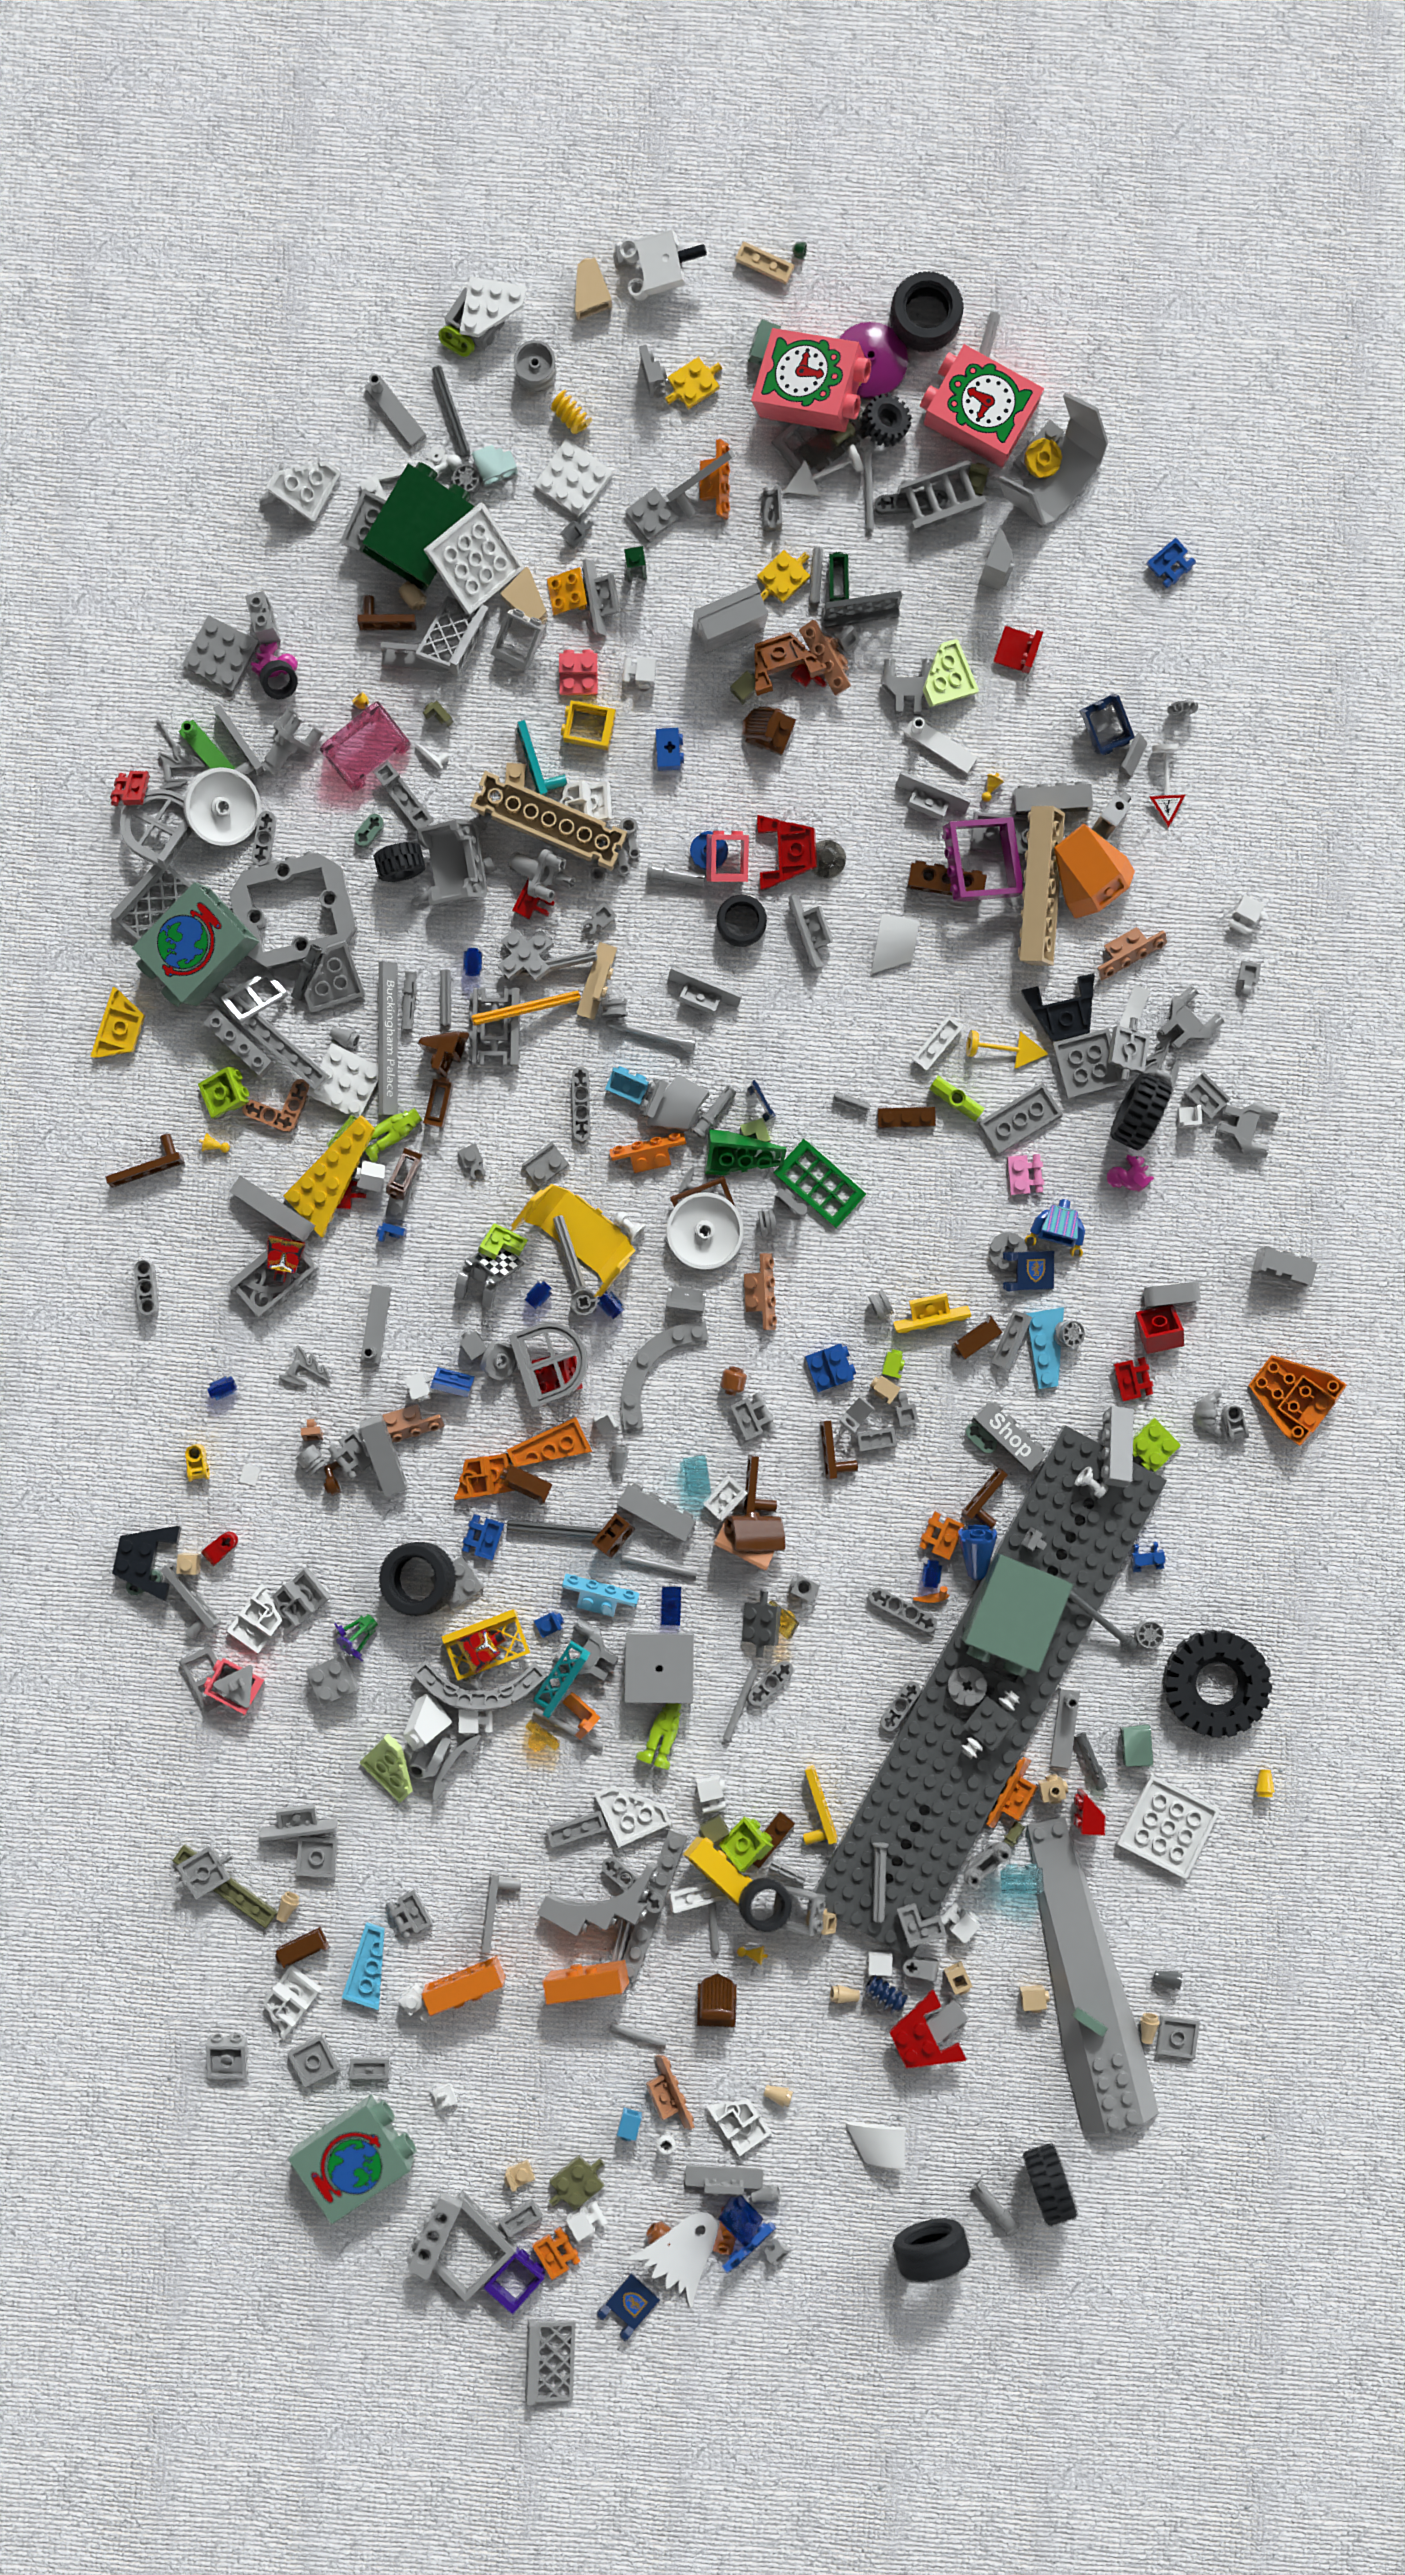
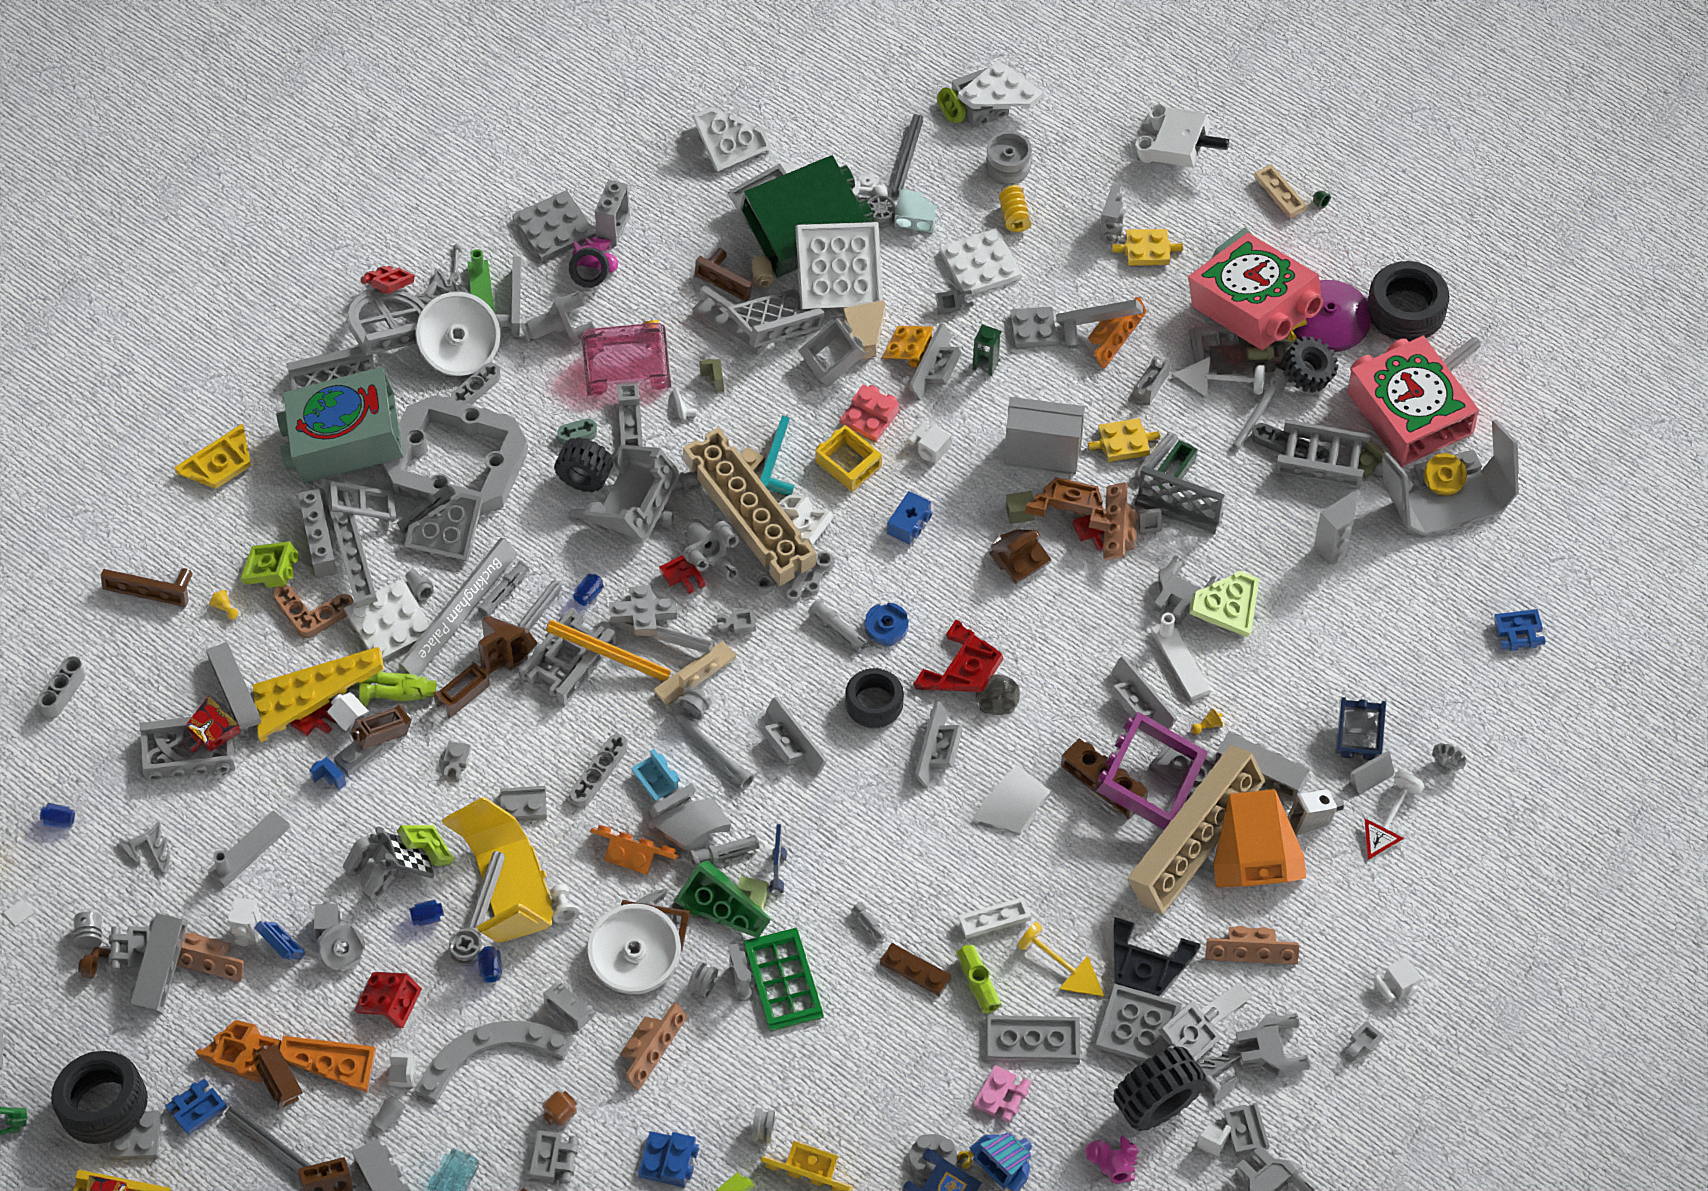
camera: 35 degrees right, 30 degrees down
(312, 1431) = (108, 905): nougat tile -> none
(394, 410) = (856, 126): light grey piece -> none
(527, 1369) = (363, 967): light grey window -> none
(591, 290) = (1101, 130): tan slope -> none
(711, 874) = (887, 651): coral window -> none
(1017, 649) = (1315, 620): red bracket -> none

